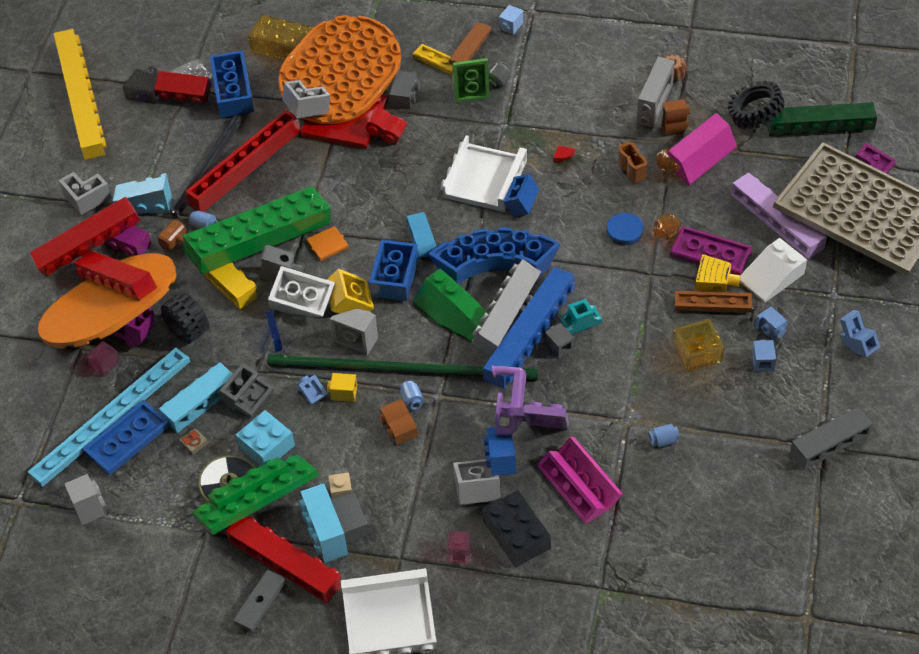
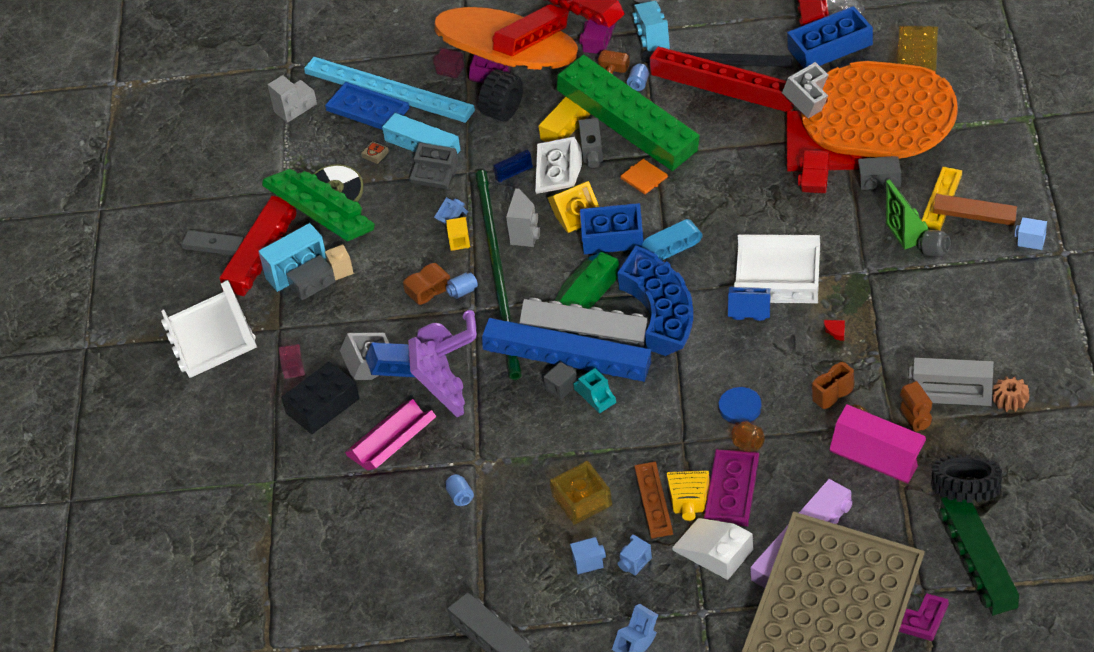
camera: 80 degrees right, 5 degrees down
(265, 438) = (382, 195): medium azure brick -> none

